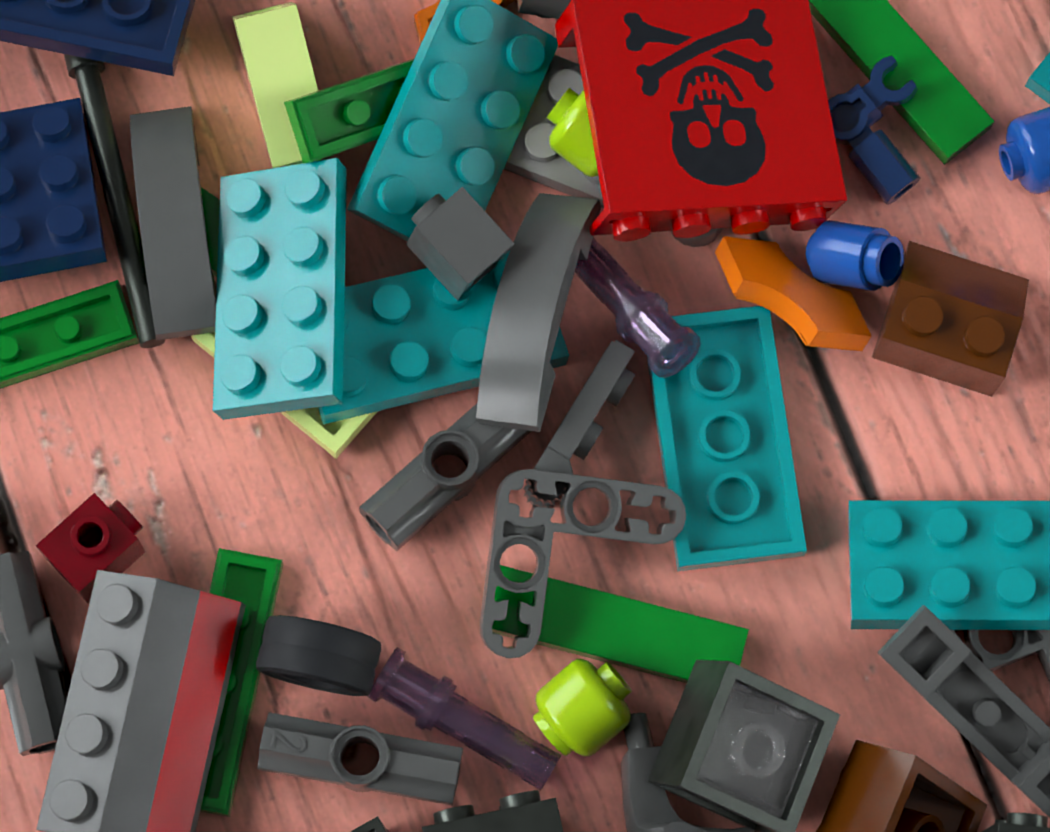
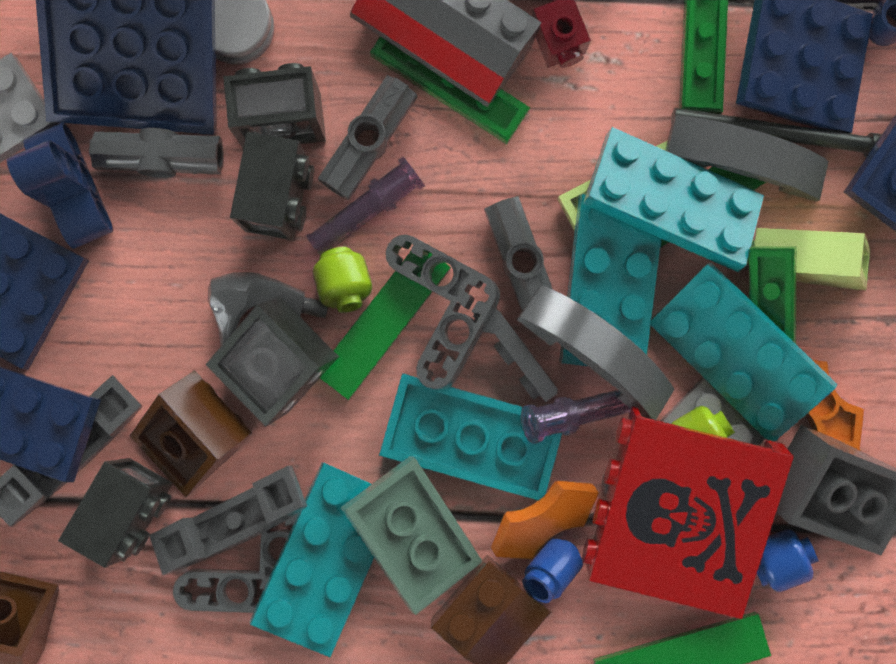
camera: 115 degrees right, 10 degrees up
(318, 655) = (436, 133): black tyre -> none
(457, 241) = (660, 318): dark grey brick -> none
(874, 152) = (616, 615): dark blue bar -> none
(893, 458) = (412, 534): none -> sand green plate

